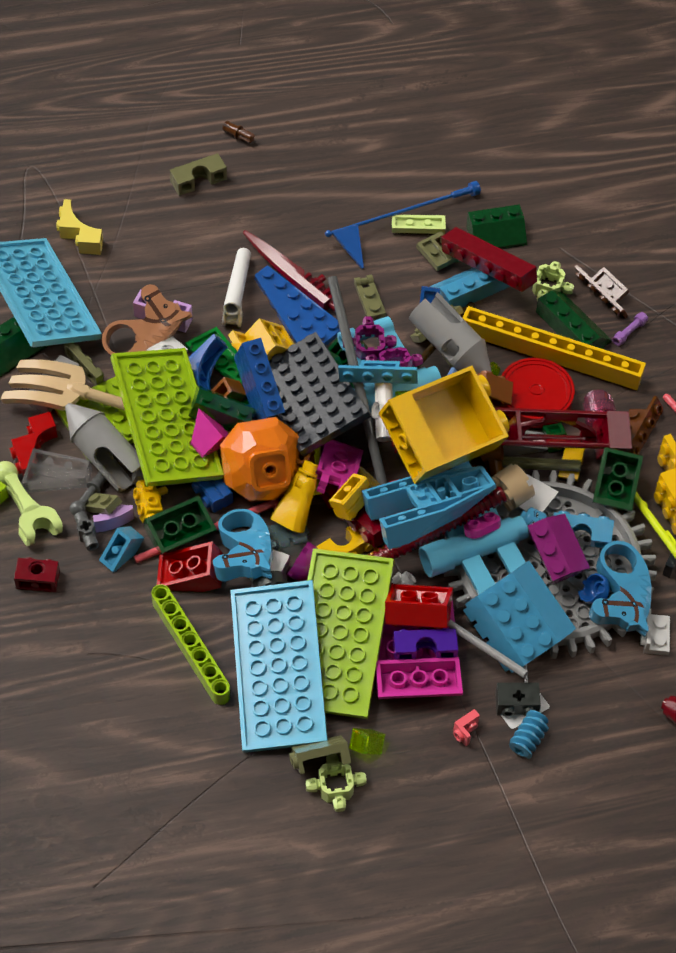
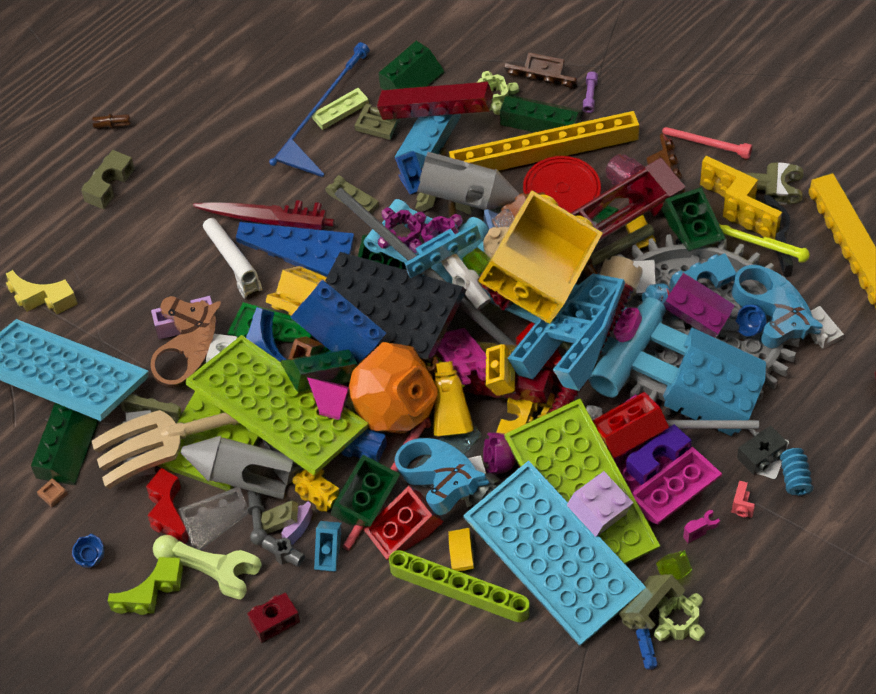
camera: 30 degrees left, 0 degrees up
(214, 618) = (461, 549): none -> yellow slope
(291, 789) = (646, 648): none -> blue axle
(339, 650) = (599, 503): none -> lavender brick
(413, 725) = (698, 528): none -> dark pink plate

